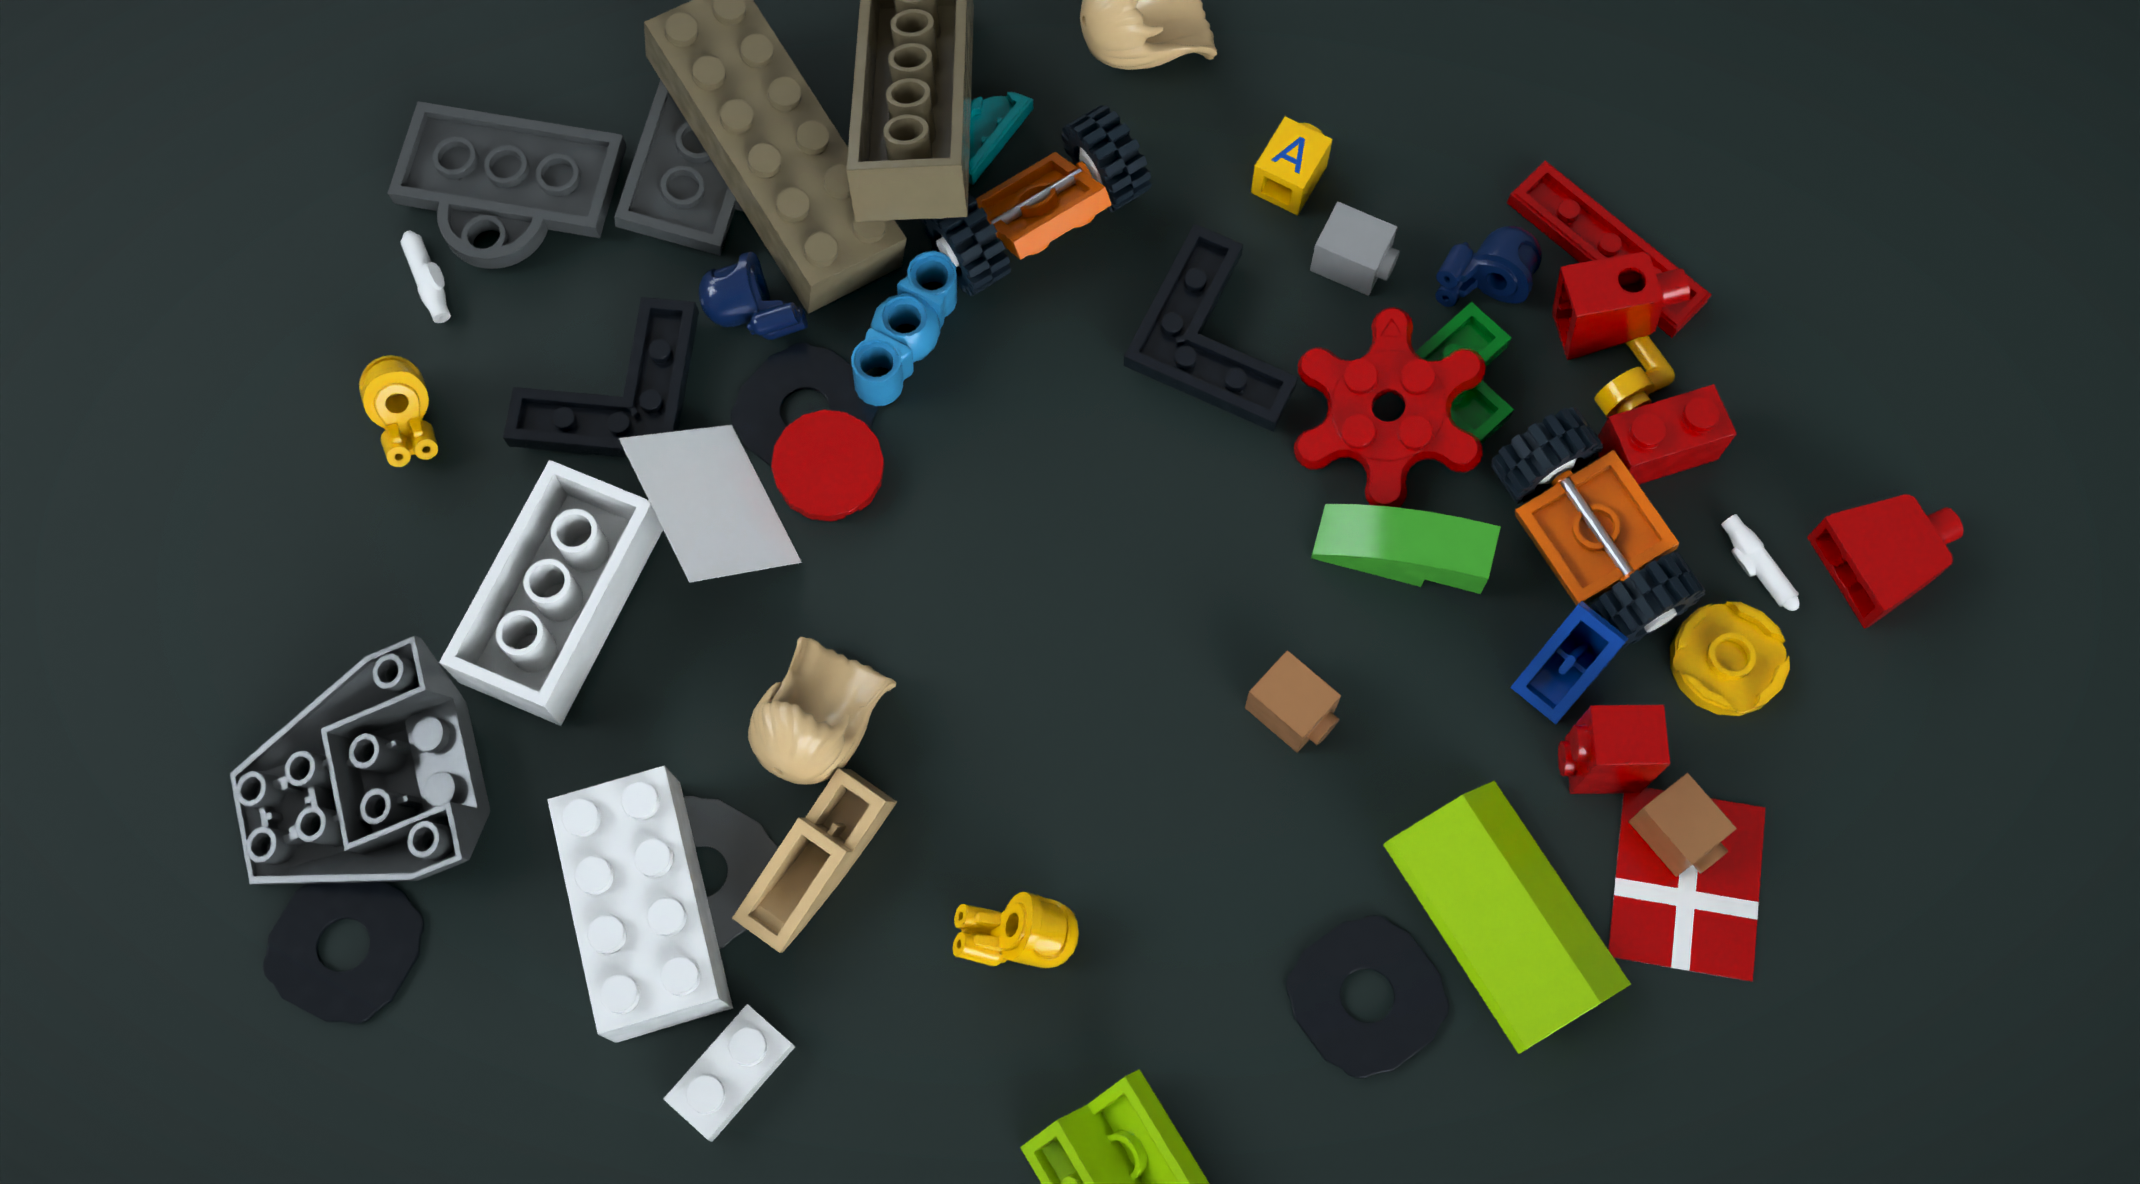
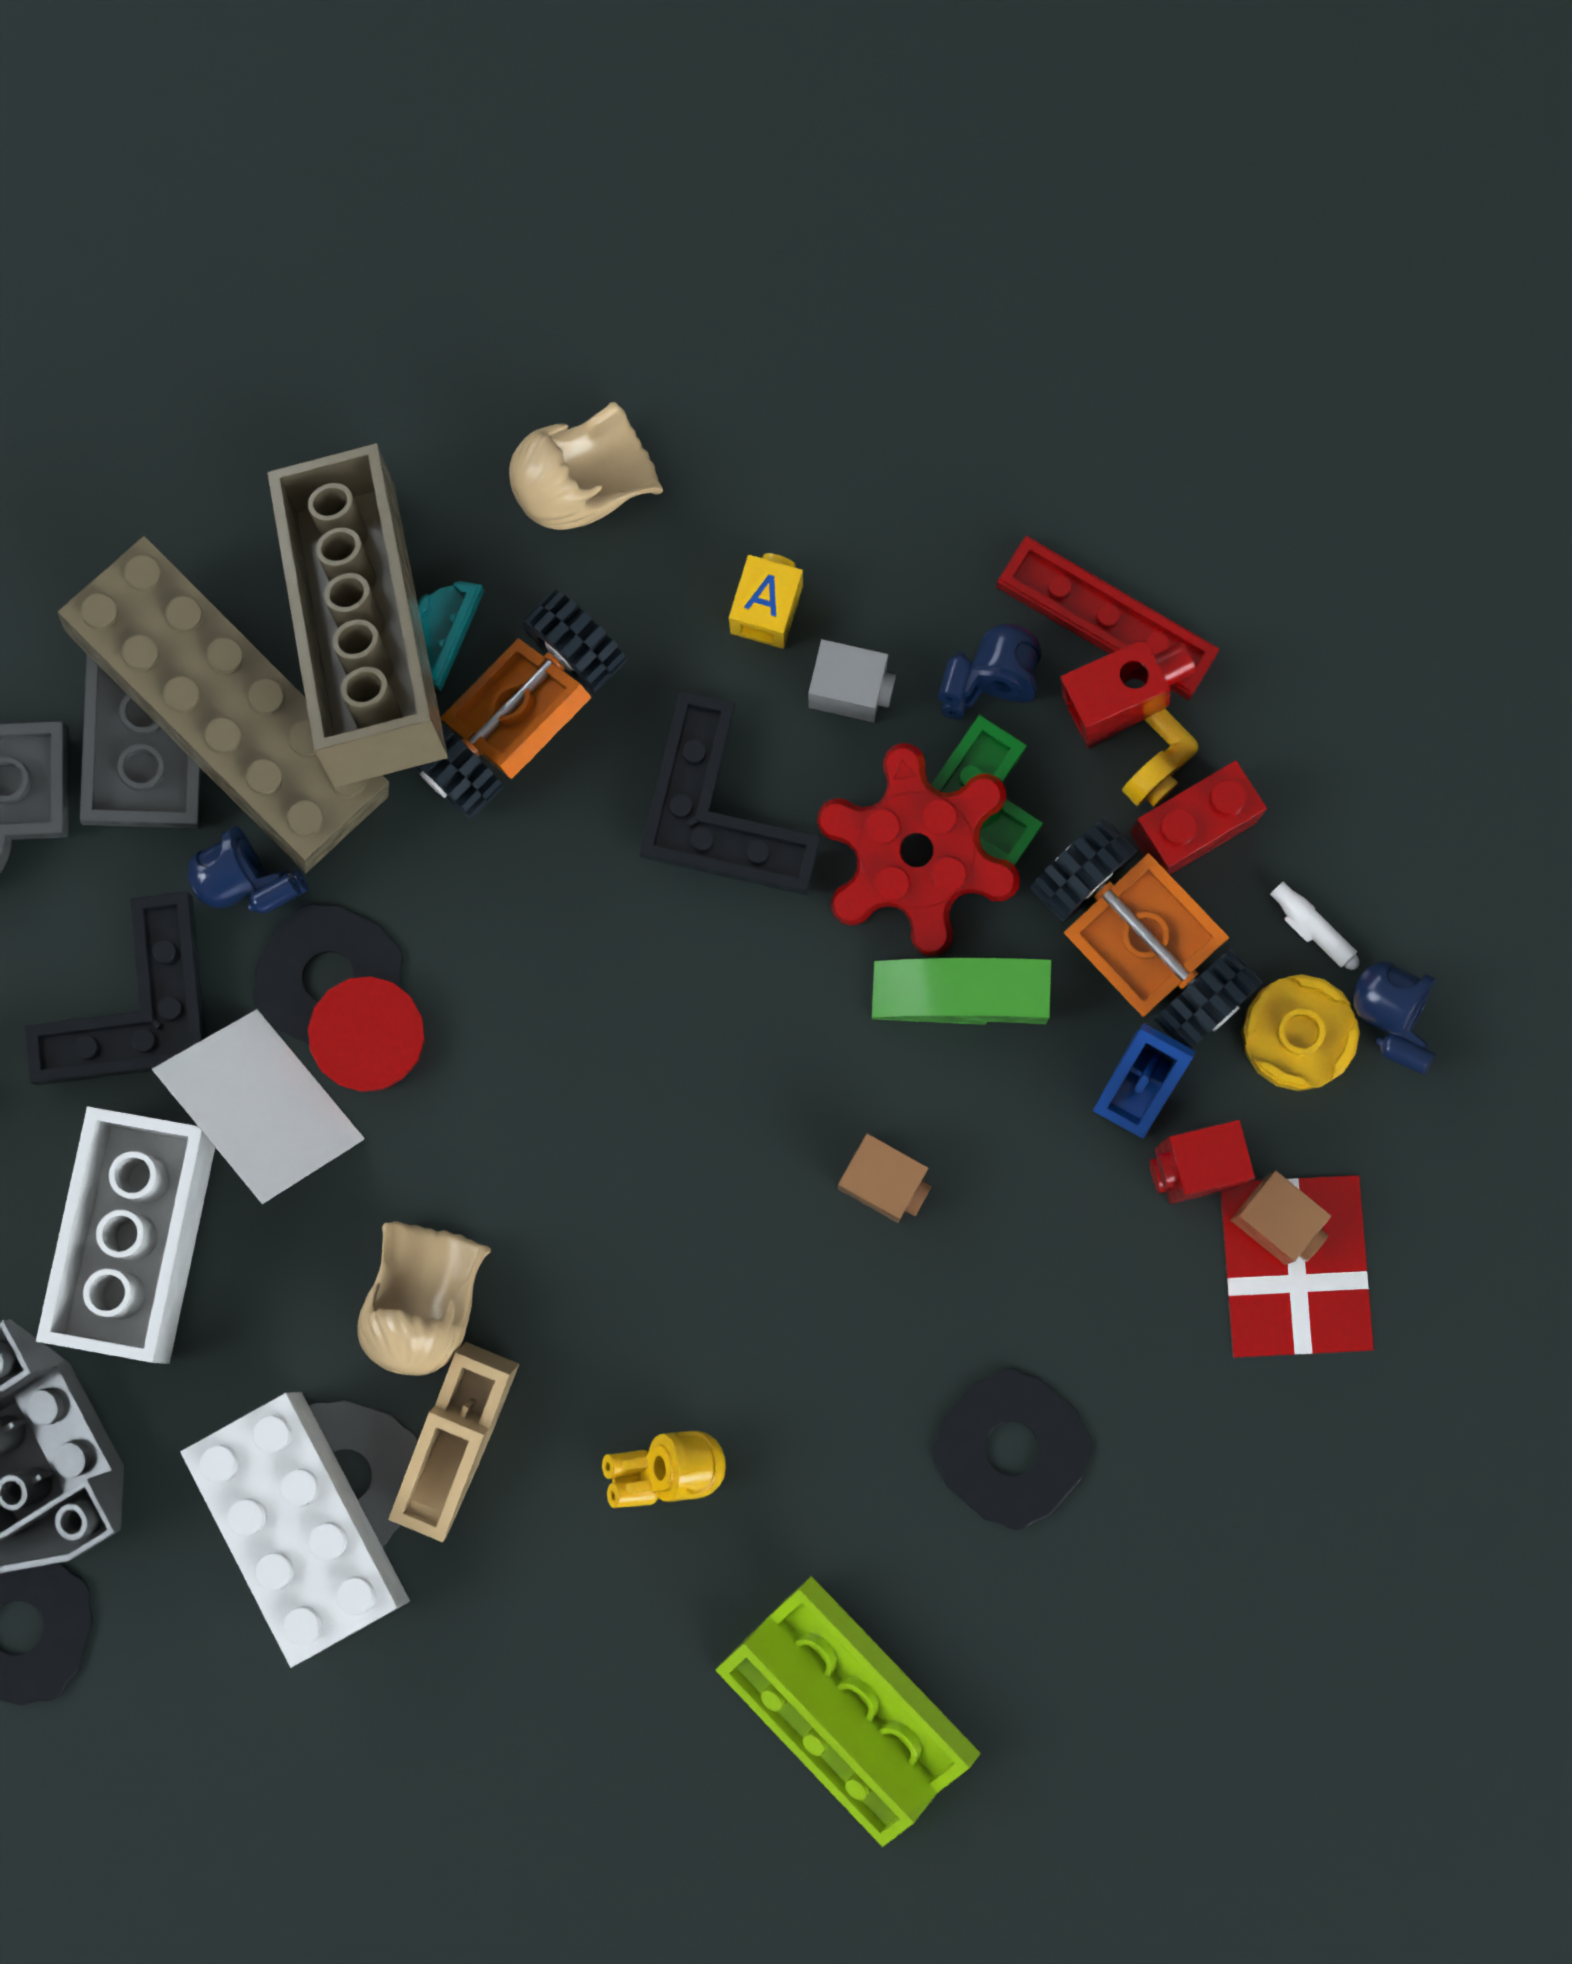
camera: 10 degrees left, 10 degrees up
(729, 1073) = (422, 1664): white plate -> none
(911, 306) = (409, 844): dark azure piece -> none
(1506, 915) = (1129, 1344): lime slope -> none
(1830, 648) = (1393, 1004): none -> dark blue piece
(1885, 552) = (1436, 892): red torso -> none

